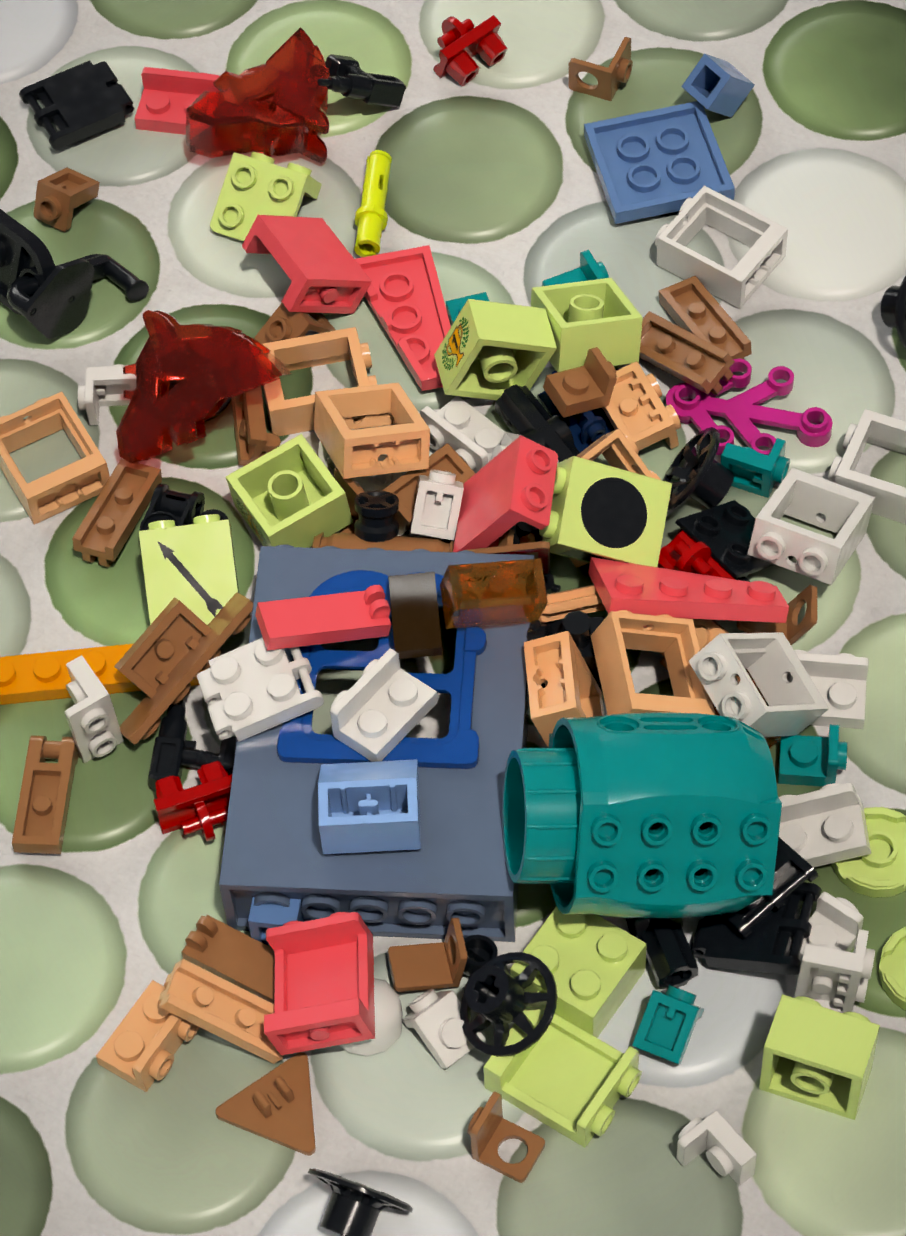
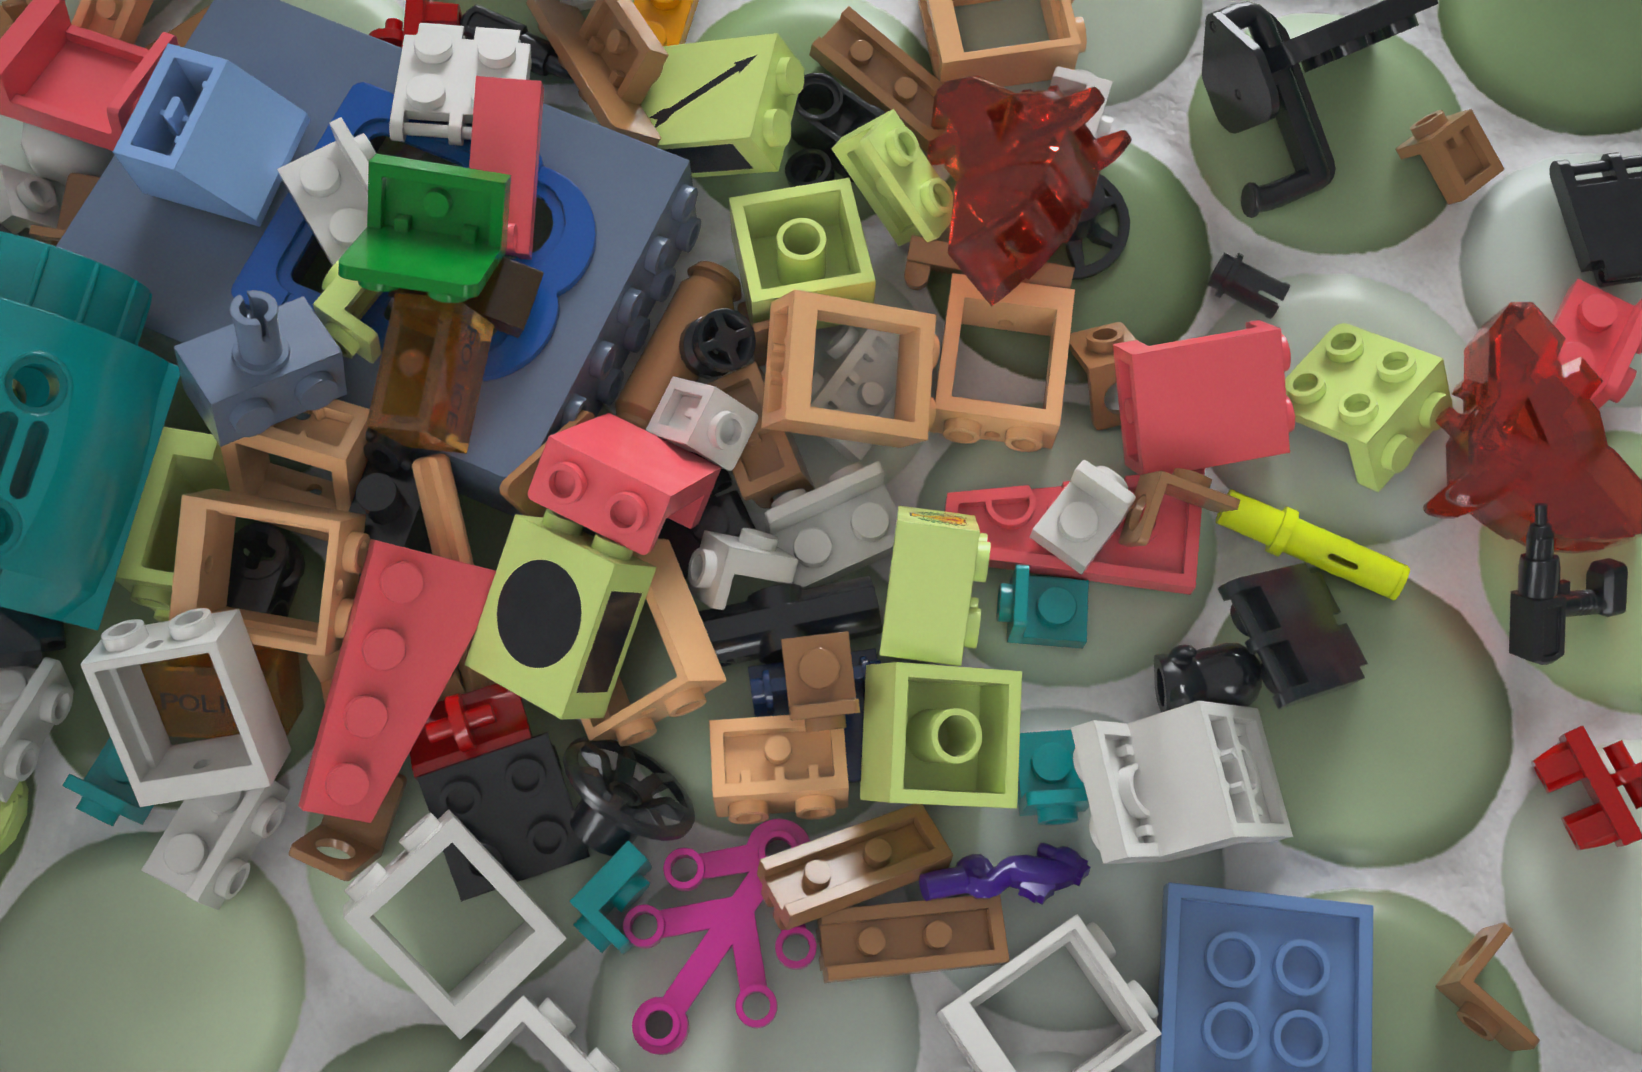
camera: 105 degrees right, 15 degrees up
(202, 282) = (1243, 283): none -> black pin
(211, 455) = (896, 178): none -> yellowish green bracket
(382, 256) = (1183, 485): none -> medium nougat bracket
(410, 302) = (1084, 515): none -> white bracket
(413, 607) = (430, 229): none -> green bracket
(439, 187) = (1294, 633): none -> black plate
(458, 670) = (340, 312): none -> yellowish green bracket
(483, 228) = (1209, 674): none -> black animal
(531, 682) = (261, 367): none -> sand blue brick
(559, 216) = (1179, 783): none -> white bracket
(640, 280) = (1033, 875): none -> dark purple animal

